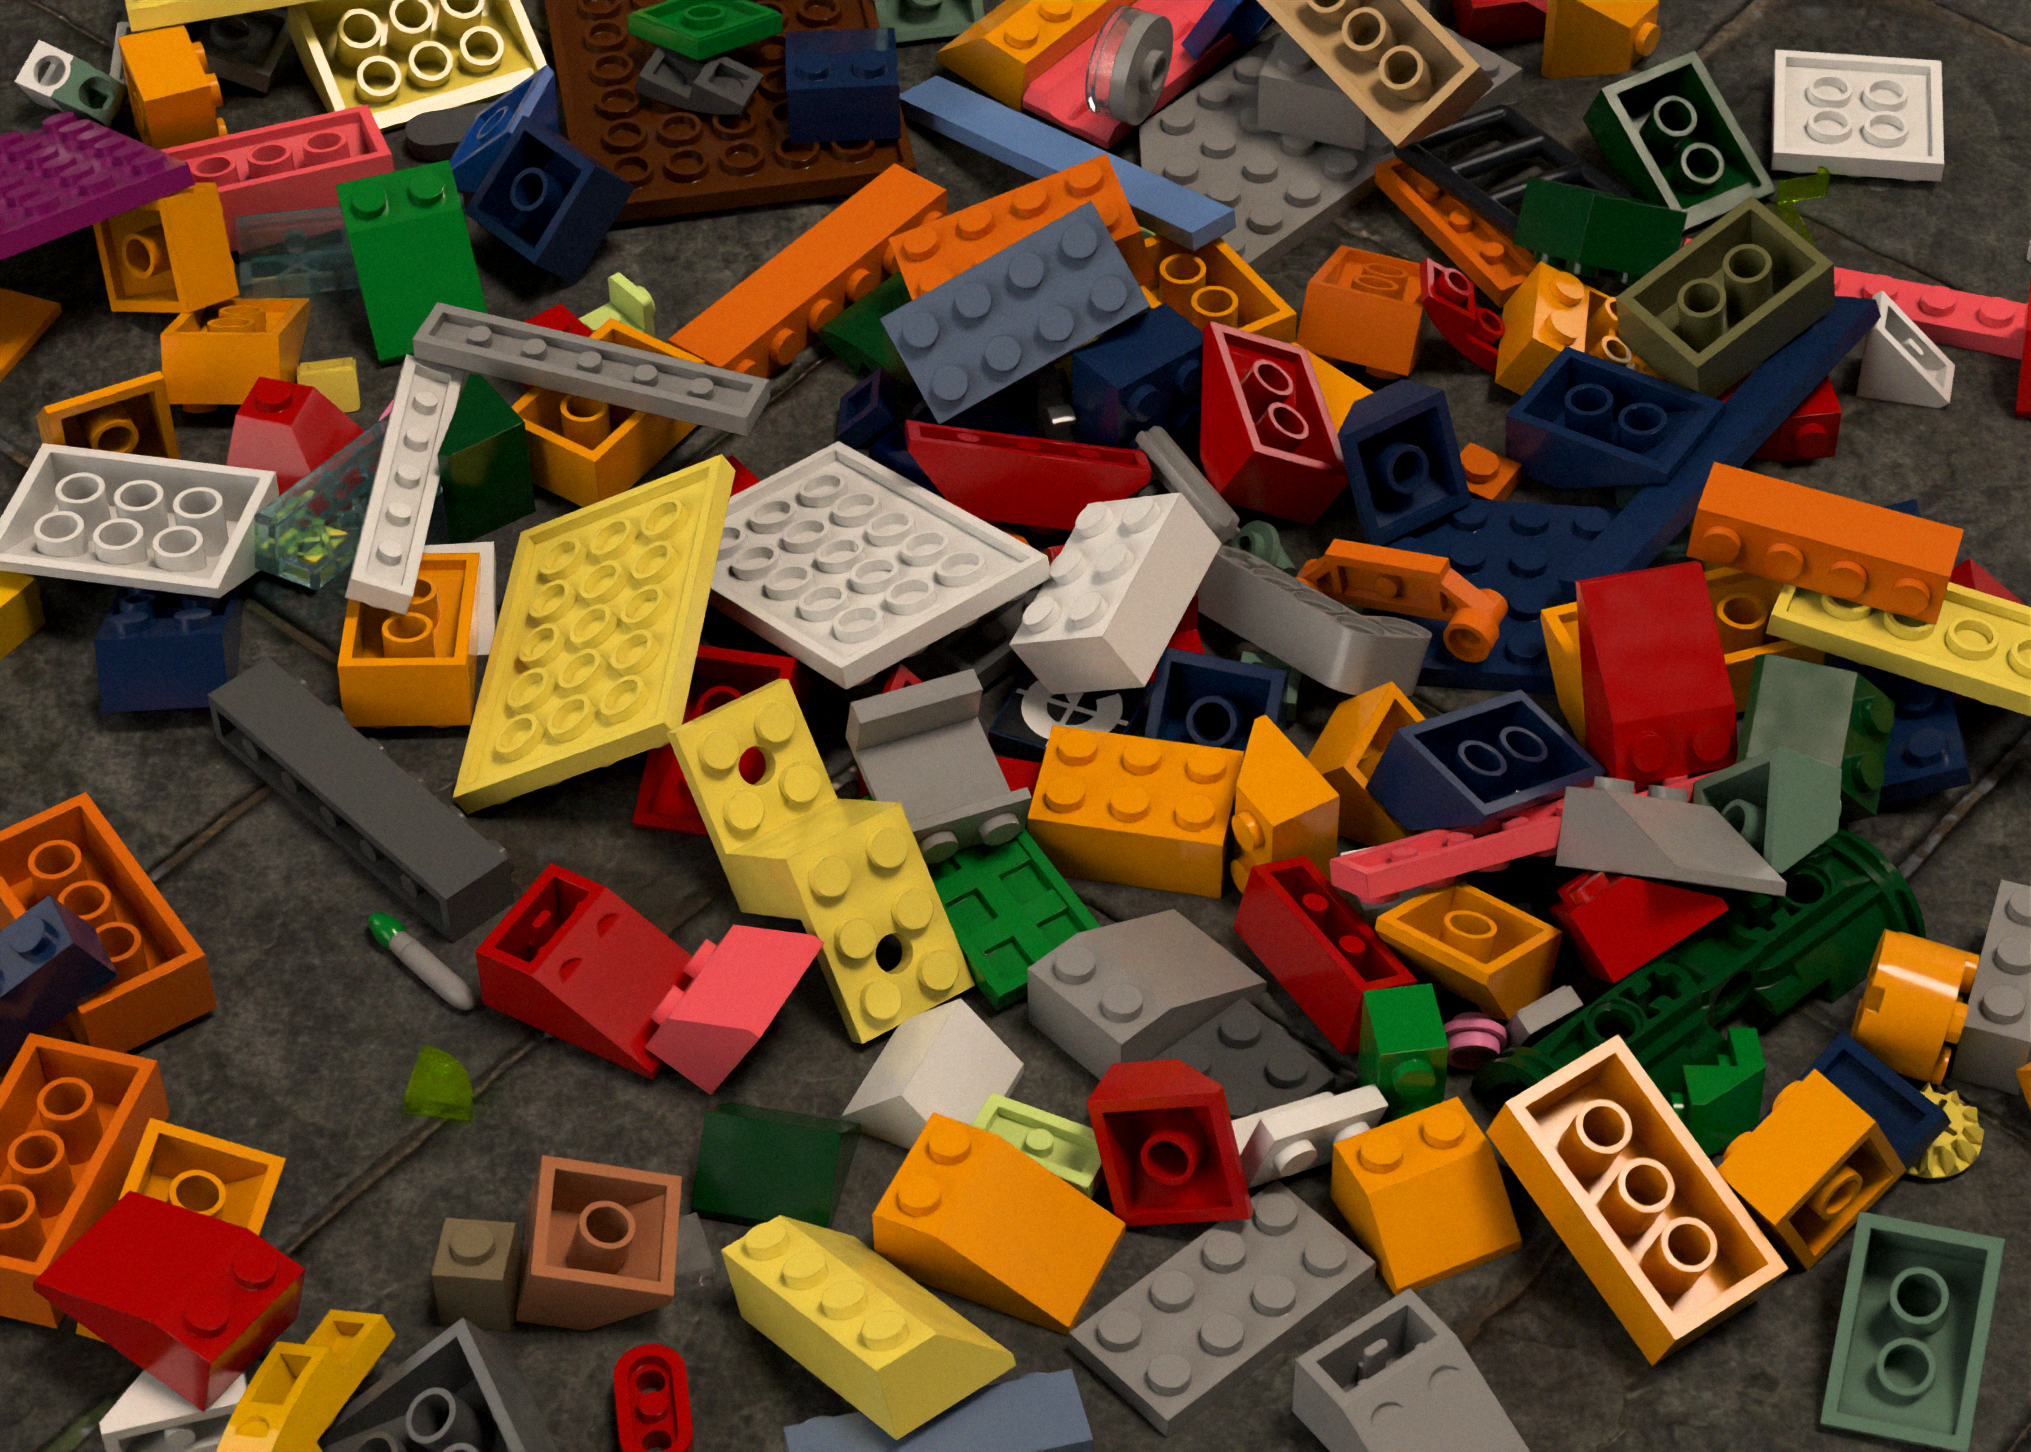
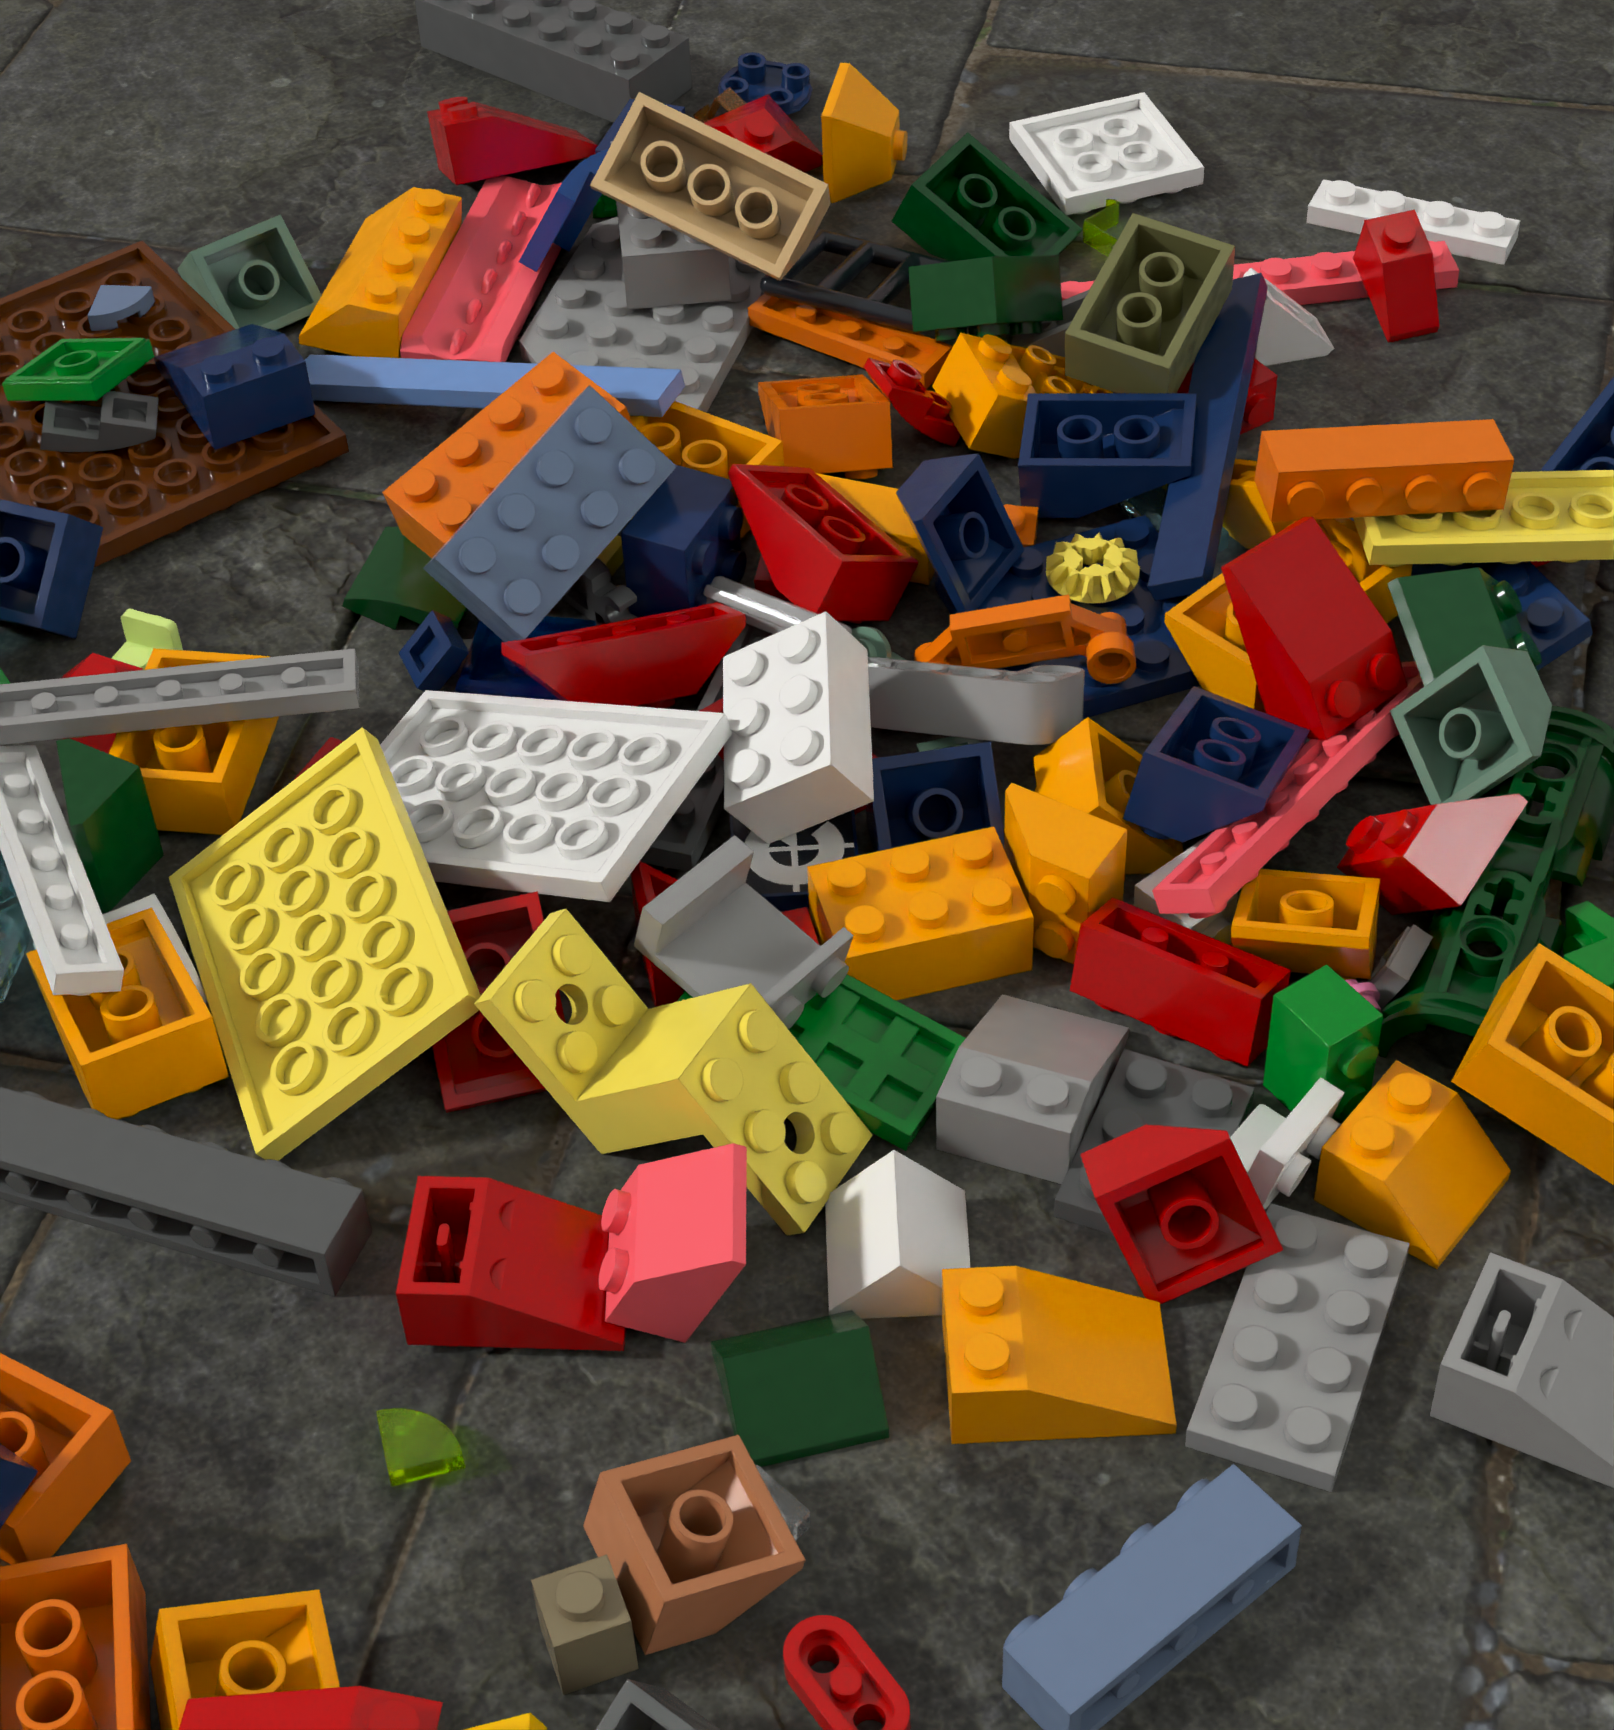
camera: 25 degrees left, 0 degrees up
(421, 961) = (317, 1327): light grey piece -> none
(813, 278) = (316, 551): orange brick -> none
(859, 1323) = (1008, 1511): light yellow slope -> none
(1050, 1140) = (1059, 1250): yellowish green plate -> none
(1129, 64) = (499, 284): light grey piece -> none
(1510, 557) = (1097, 582): none -> light yellow gear
(1658, 839) = (1402, 767): light grey slope -> none

